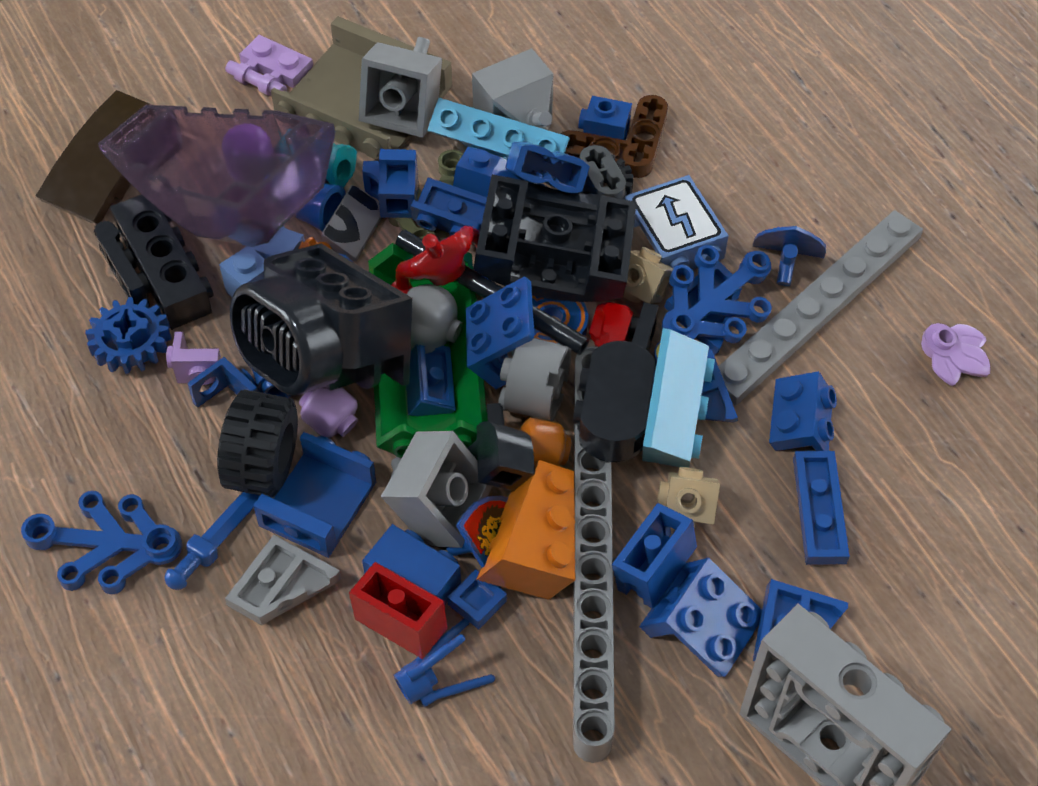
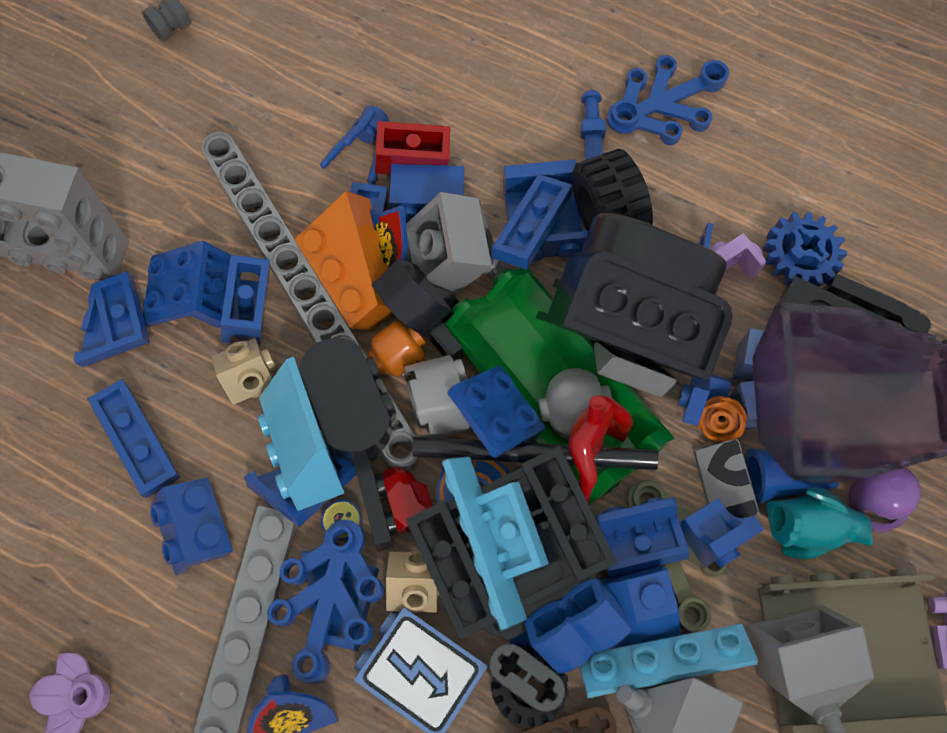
camera: 145 degrees right, 15 degrees up
(279, 581) = (518, 136): light grey wing -> none
(344, 462) = (532, 221): none -> blue plate
(430, 382) = (530, 358): blue slope -> none
(562, 233) = (500, 536): none -> medium azure bracket

